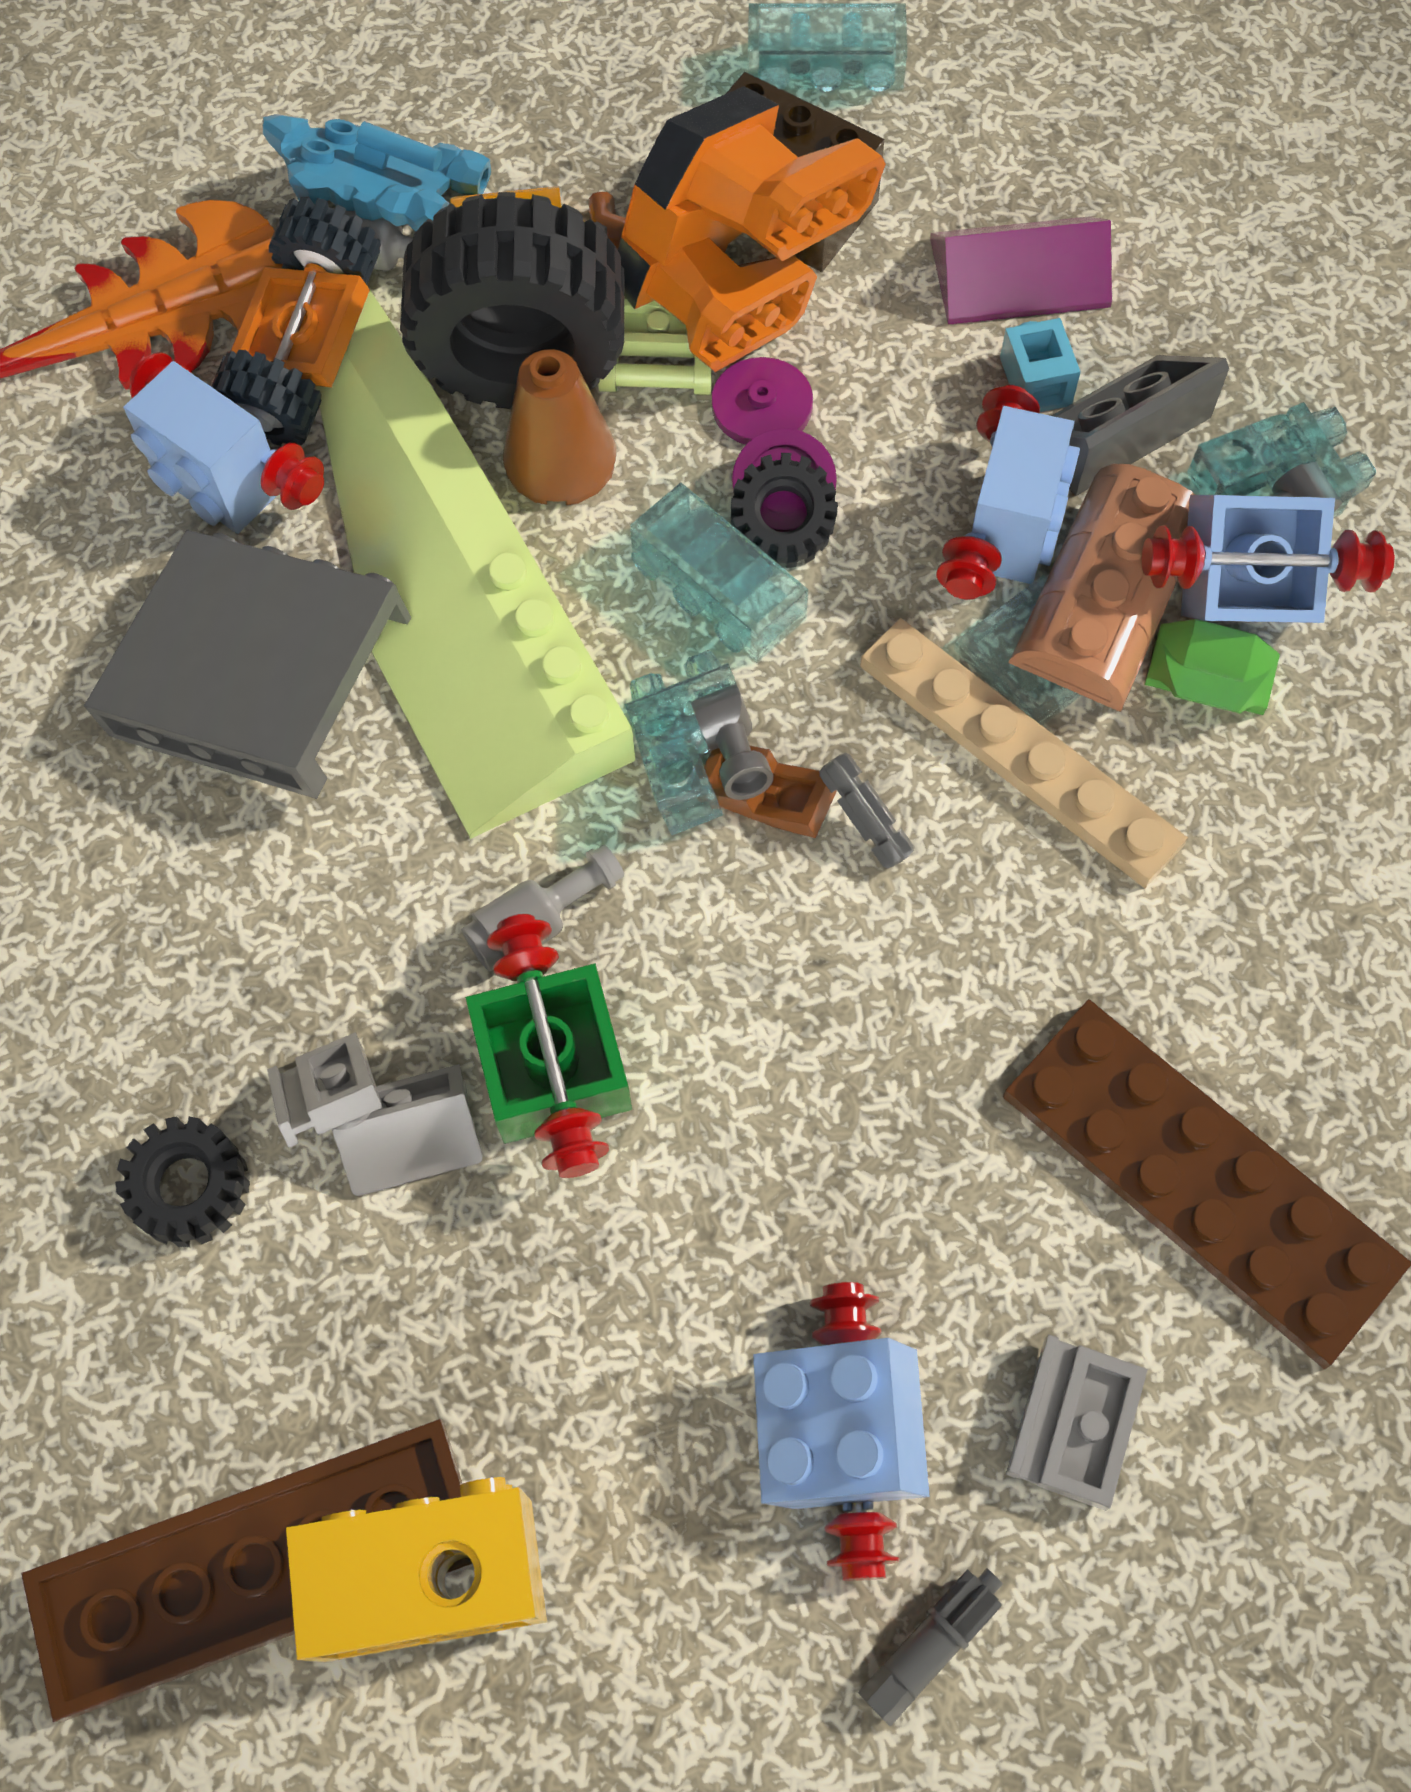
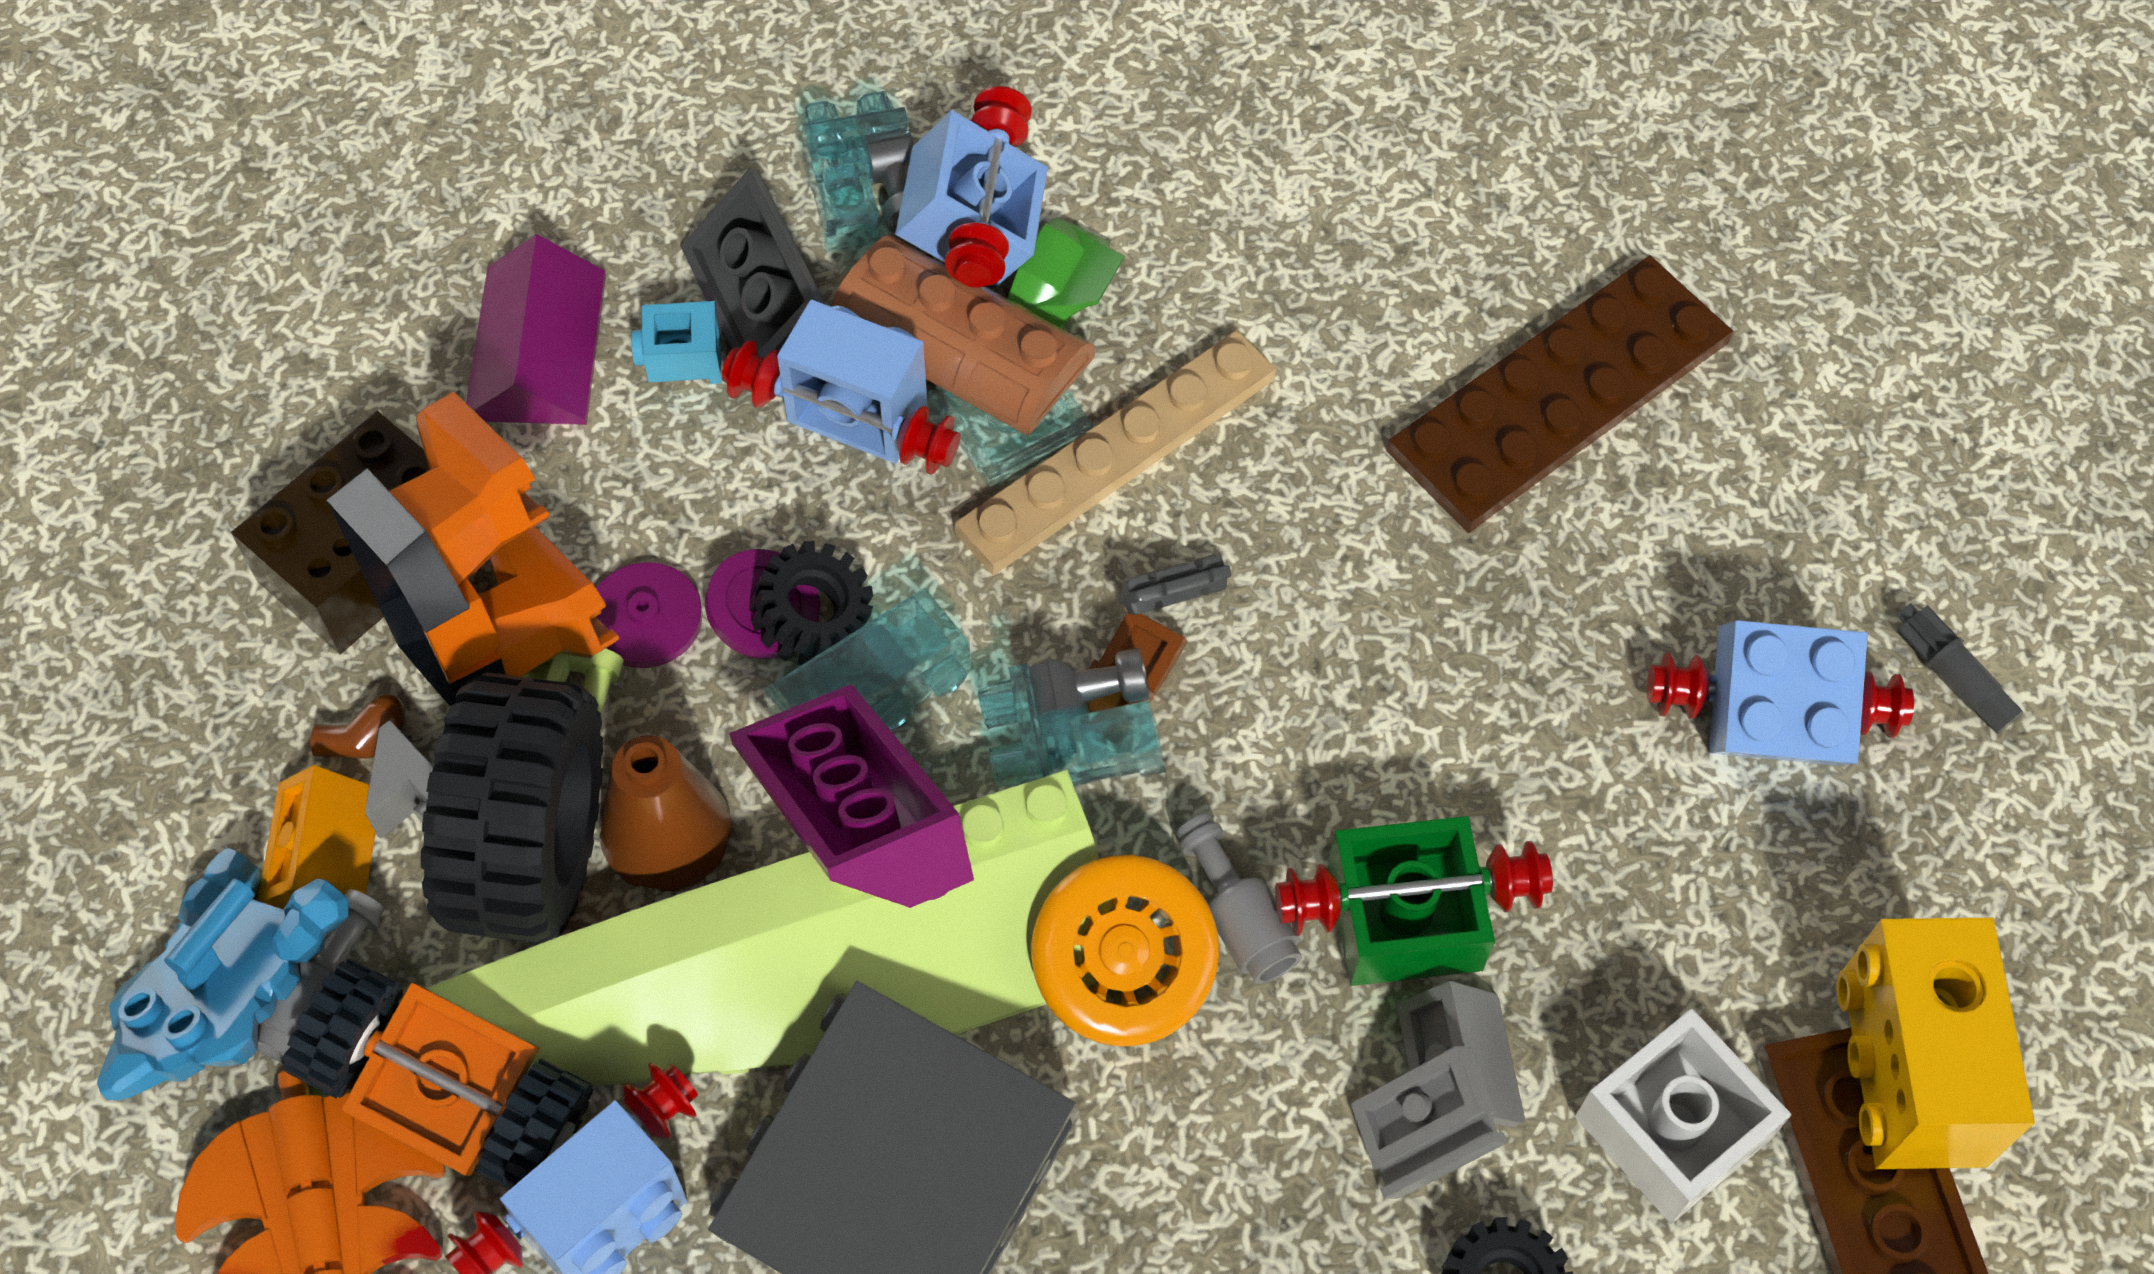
camera: 85 degrees left, 5 degrees down
(349, 1331) = (1681, 1115): none -> white brick
(492, 818) = (1125, 950): none -> light orange wheel
(540, 535) = (858, 799): none -> magenta slope
(828, 45) = (174, 468): clear light blue brick -> none
(1077, 1422) = (1775, 524): light grey plate -> none

